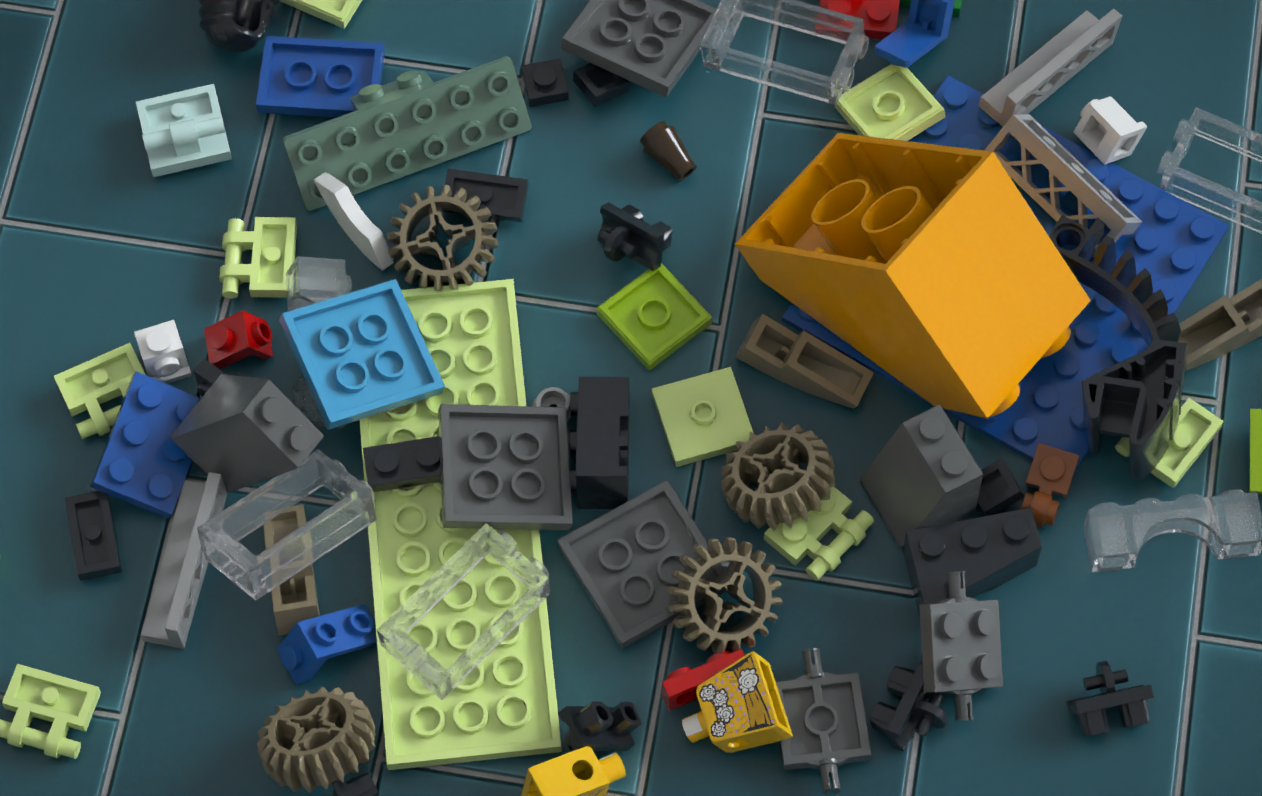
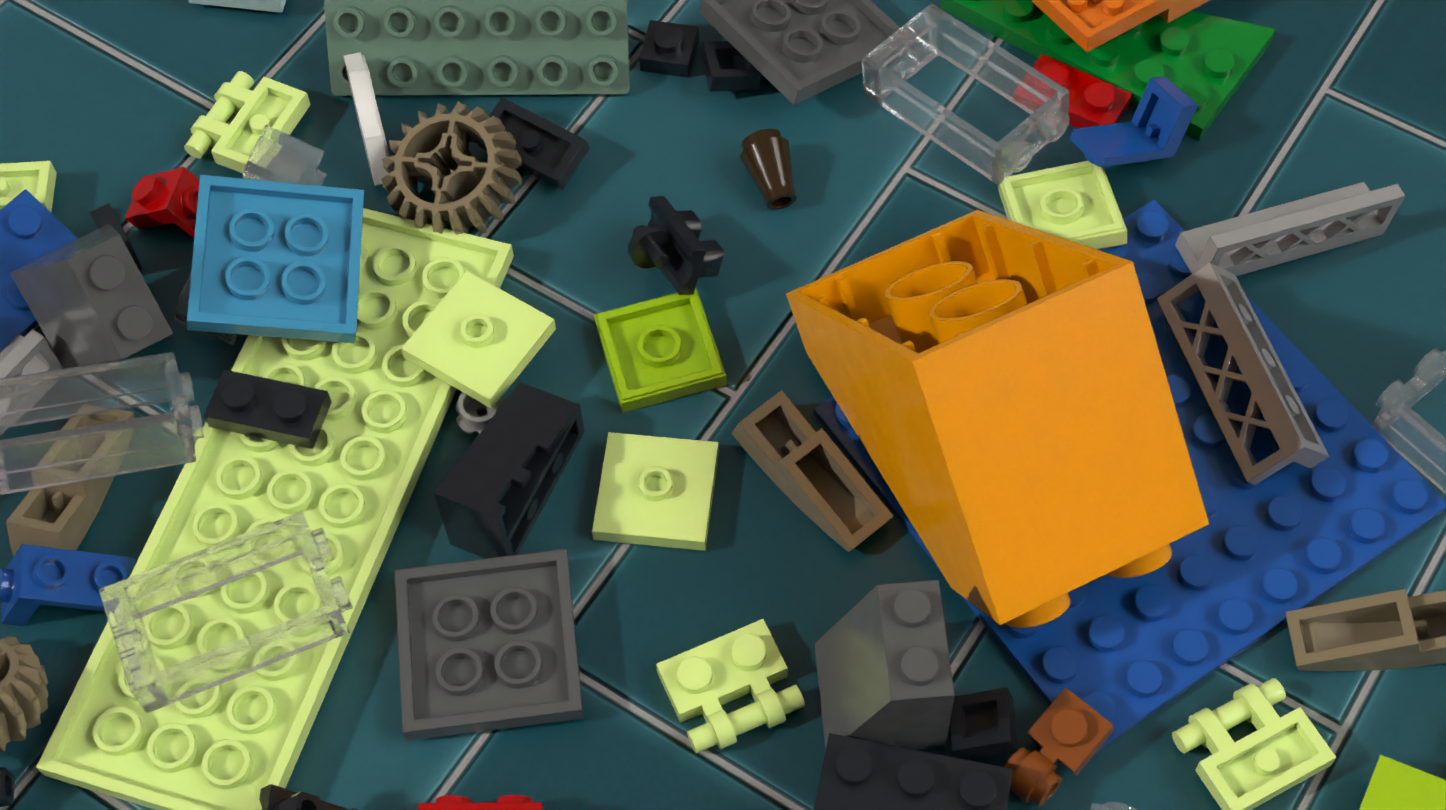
camera: 25 degrees right, 5 degrees down
(163, 352) = (76, 182): white brick -> none
(504, 467) = (368, 455): dark grey plate -> none
(530, 356) = (478, 339): none -> yellowish green plate
(732, 582) = (575, 744): dark tan gear -> none
(783, 488) = (703, 598): dark tan gear -> none
(1108, 130) = (1332, 330): white brick -> none
(1142, 393) = (1234, 674): black piece -> none

